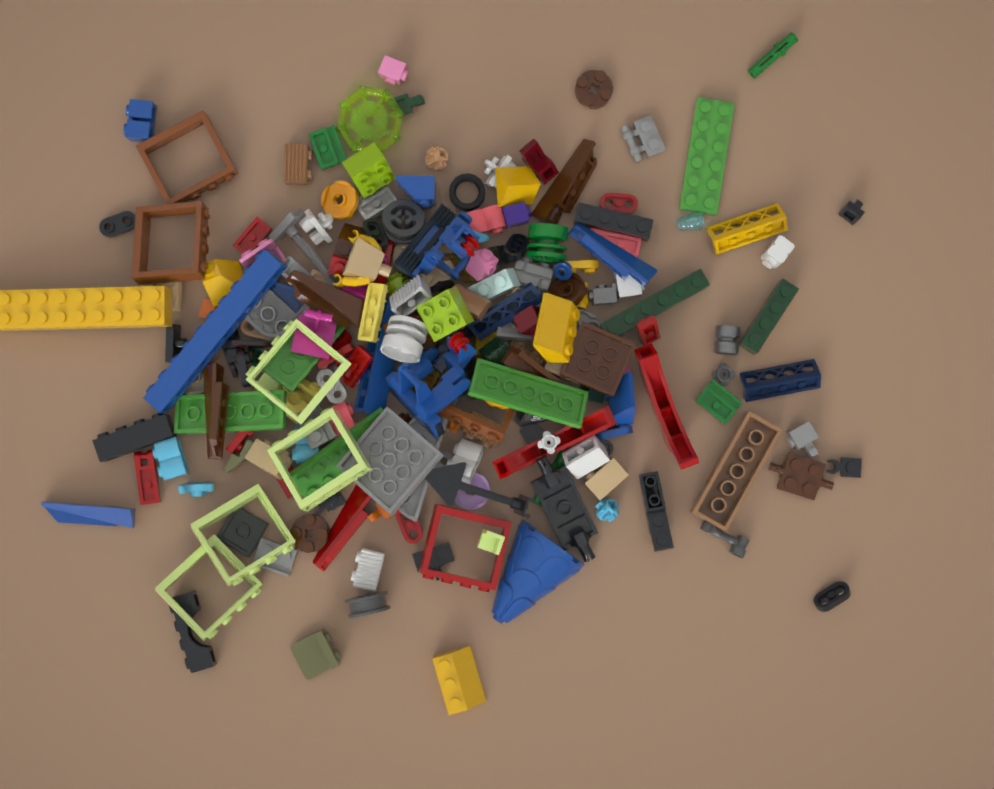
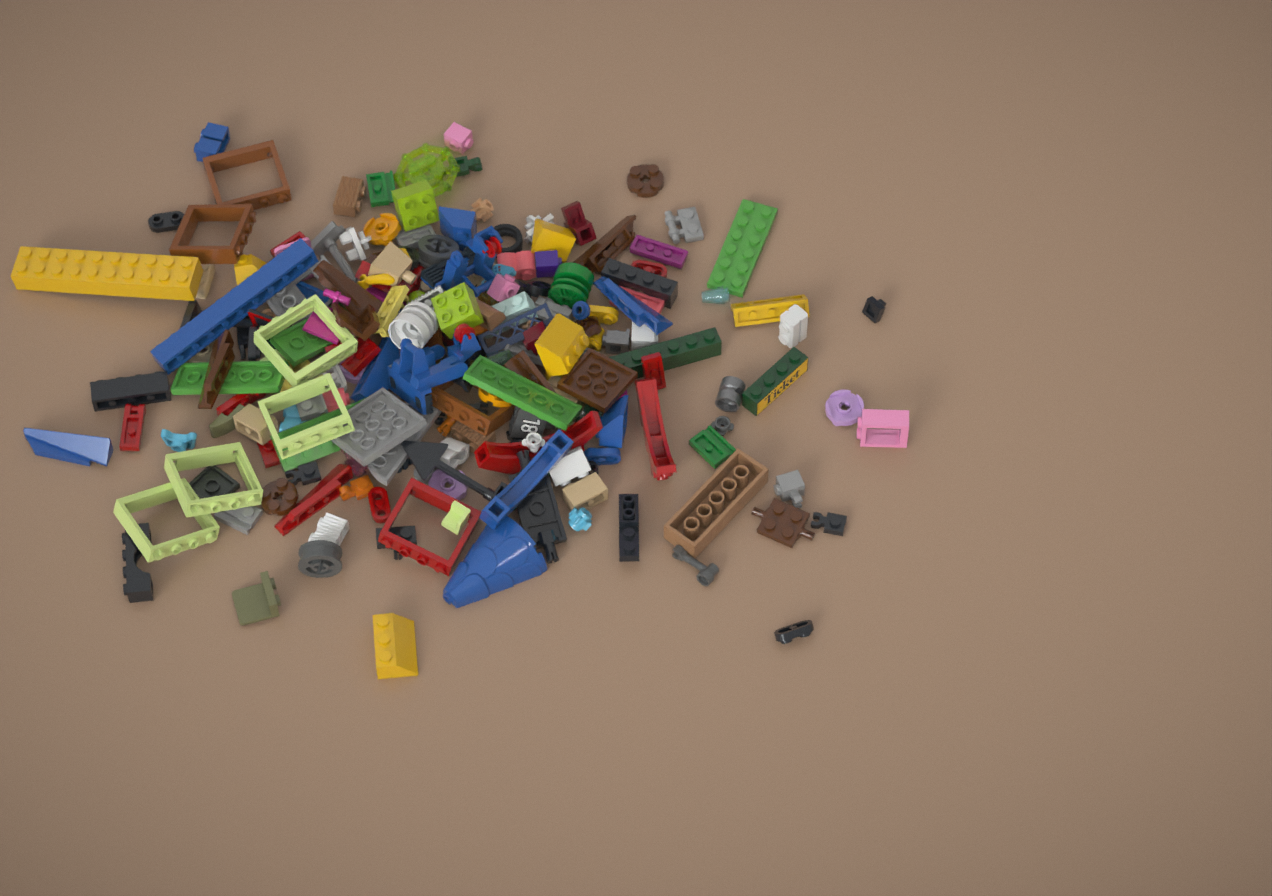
camera: 10 degrees right, 30 degrees down
(171, 458) = (160, 413): medium azure brick -> none
(345, 340) = (360, 326): none -> reddish brown bracket
(539, 521) = (527, 480): none -> blue arch
(624, 177) = (658, 251): none -> magenta plate
(781, 383) = (777, 439): dark blue fence -> none
(789, 40) = (827, 174): green pin -> none
(834, 343) = (844, 417): none -> lavender plate
(885, 358) = (886, 420): none -> bright pink window

